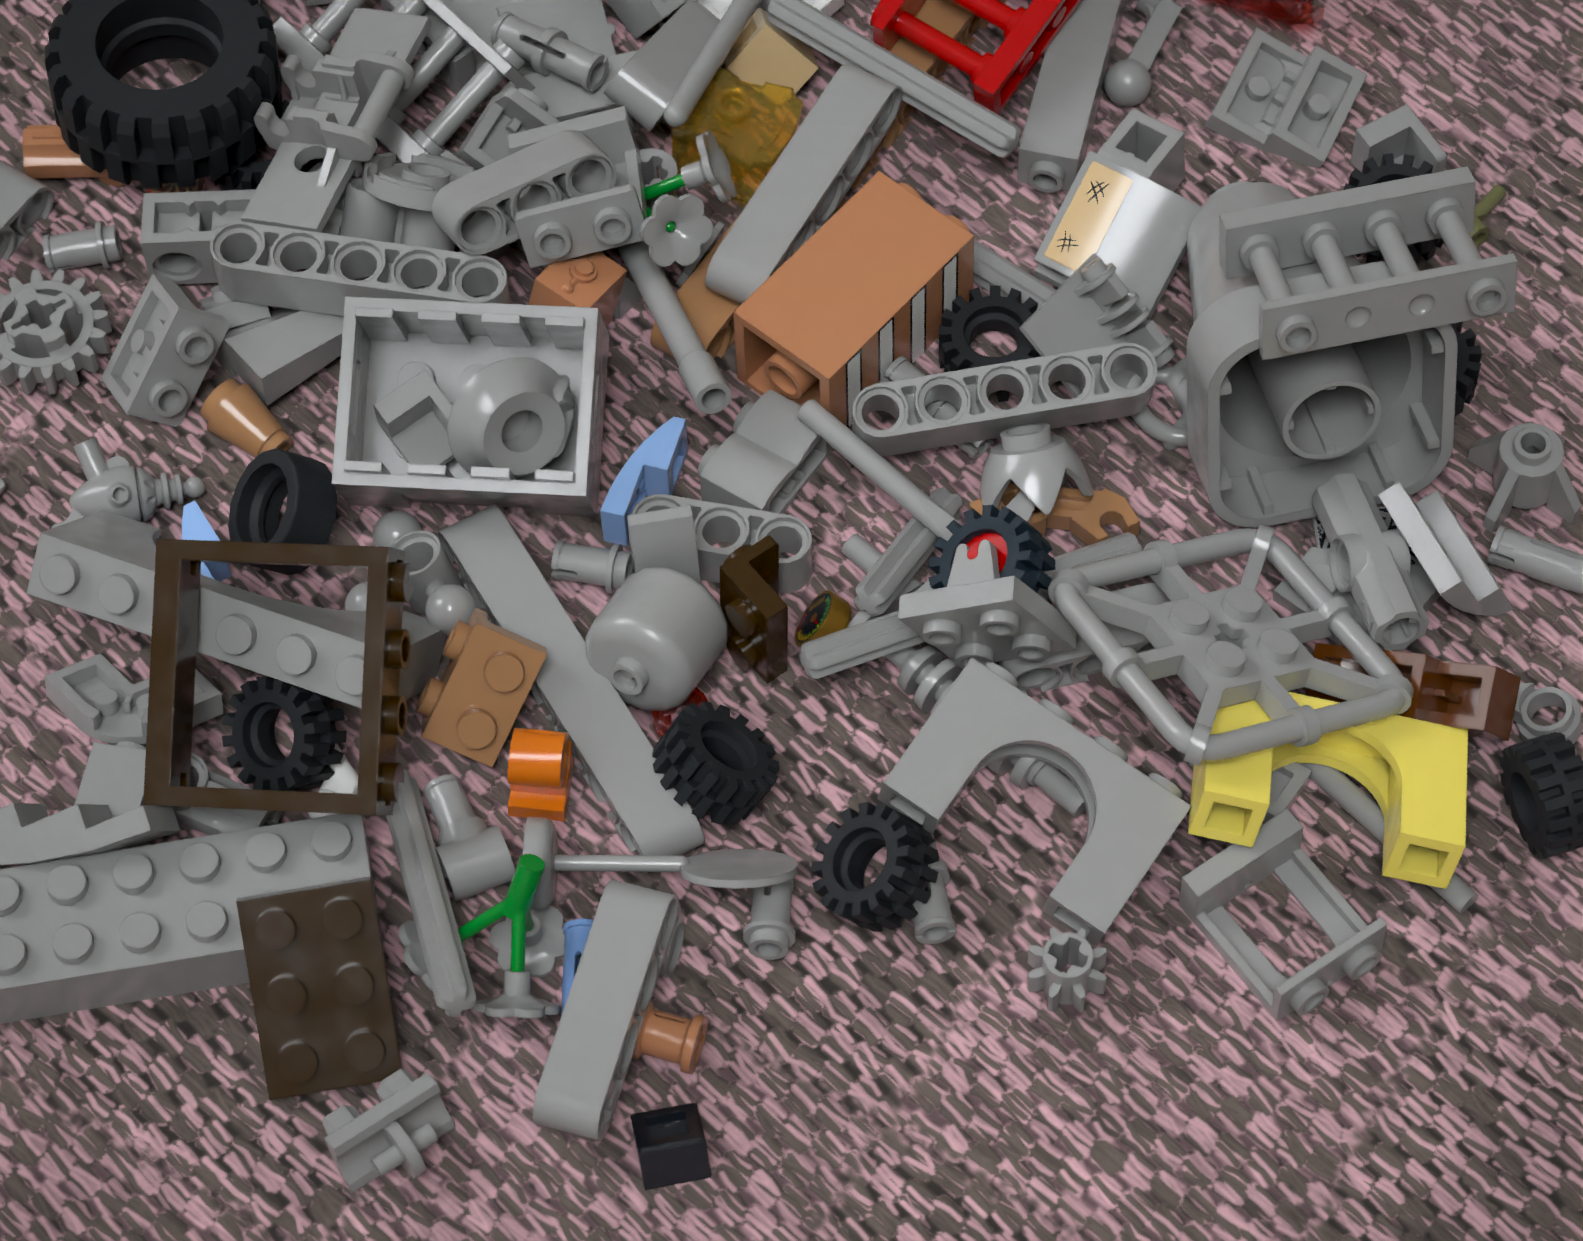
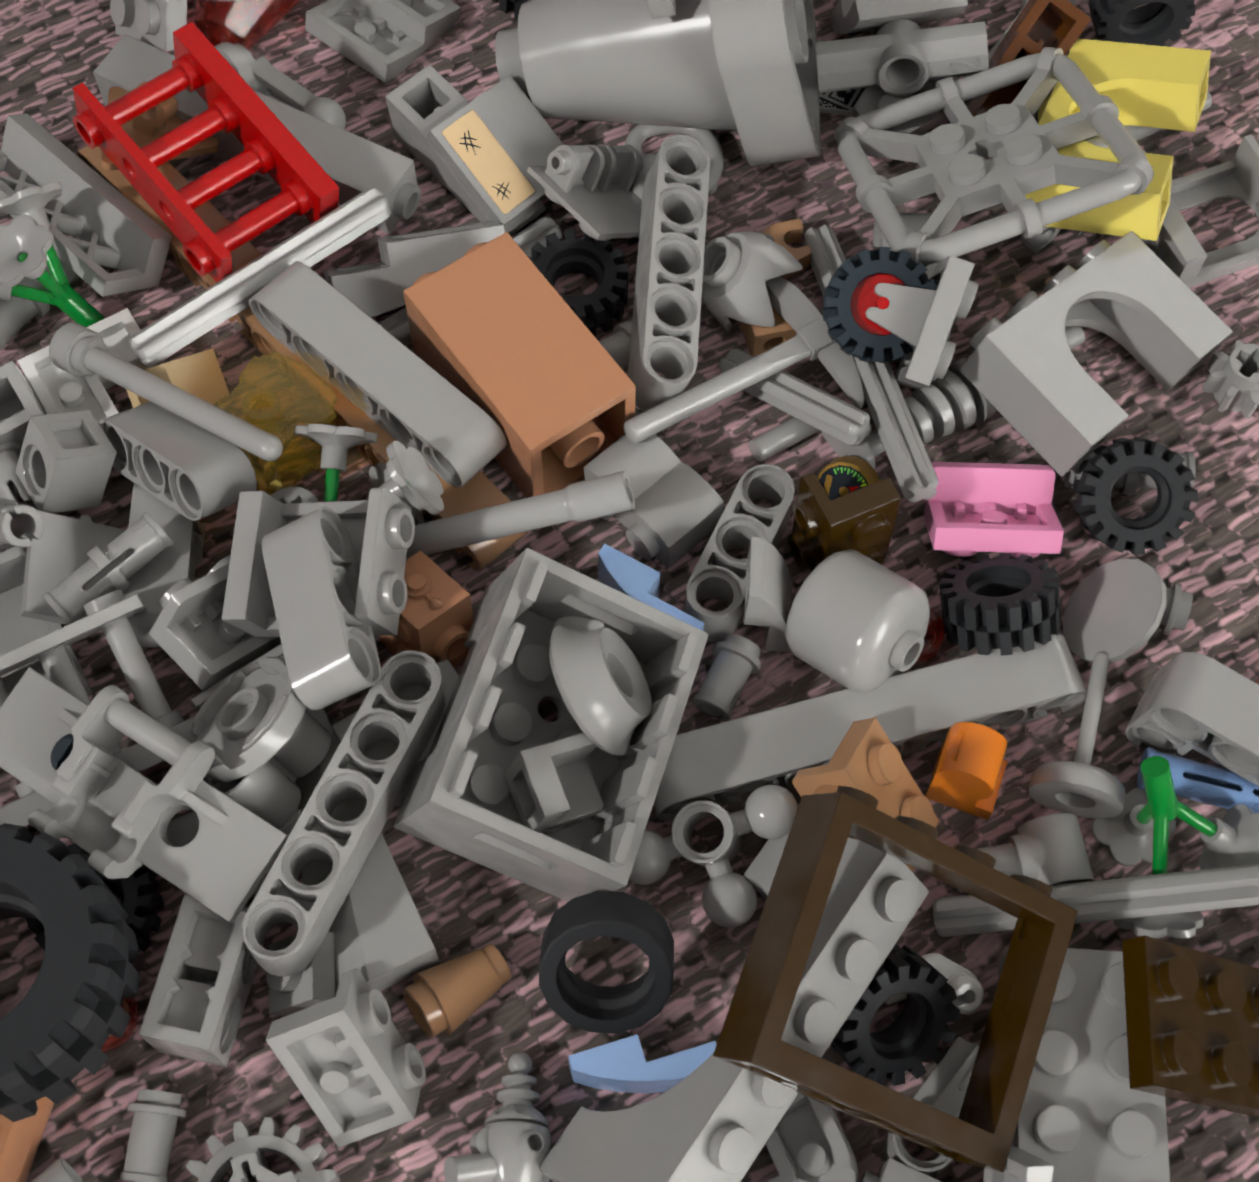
camera: 80 degrees left, 5 degrees up
(827, 750) = (993, 509): none -> bright pink bracket
(957, 188) = (404, 259): none -> light grey slope

